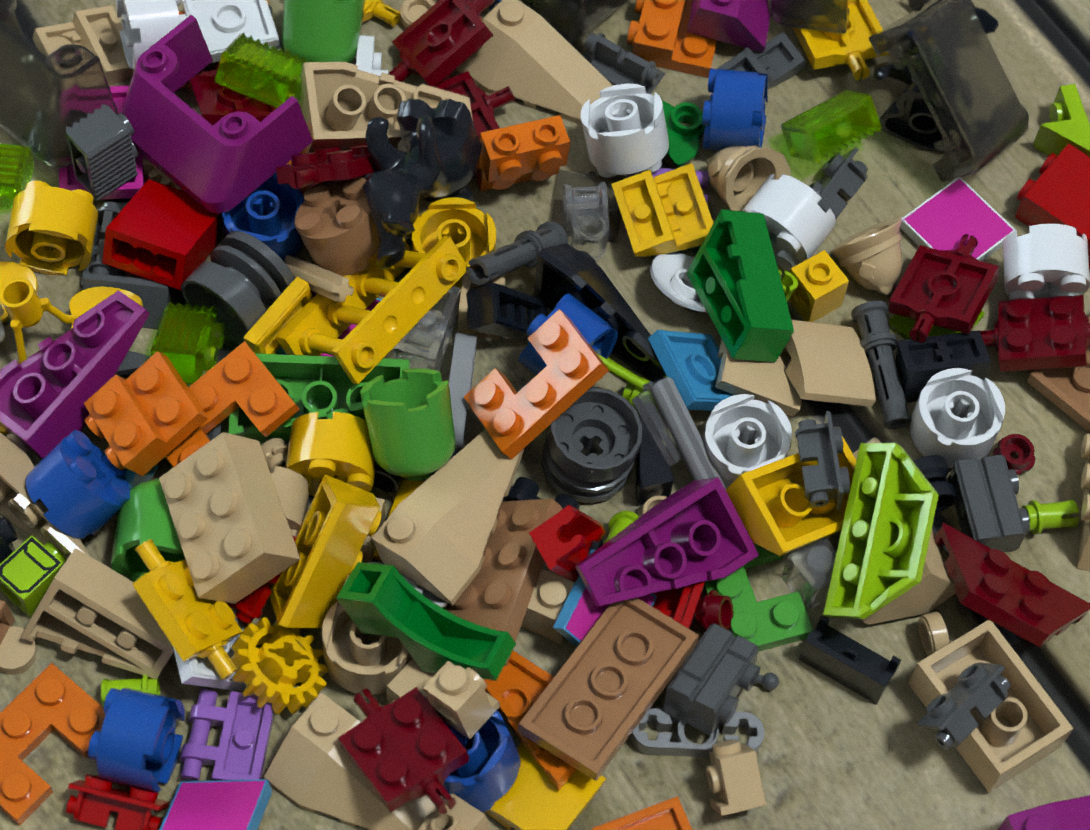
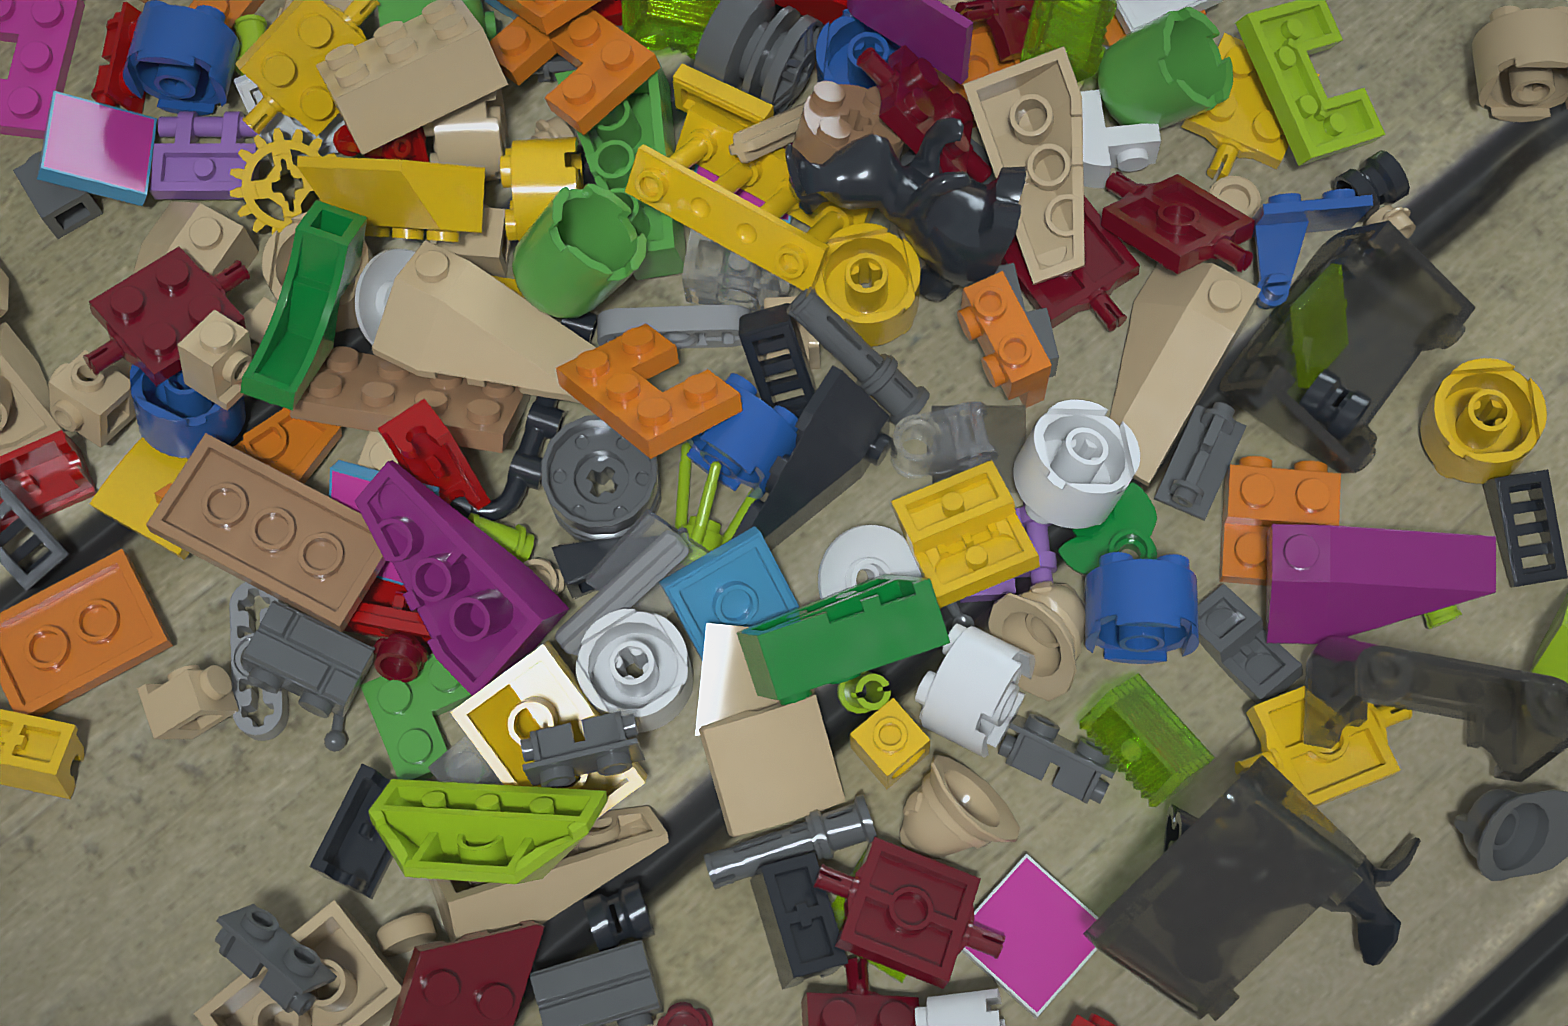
camera: 95 degrees right, 10 degrees up
(957, 416) = (680, 930): white brick -> none

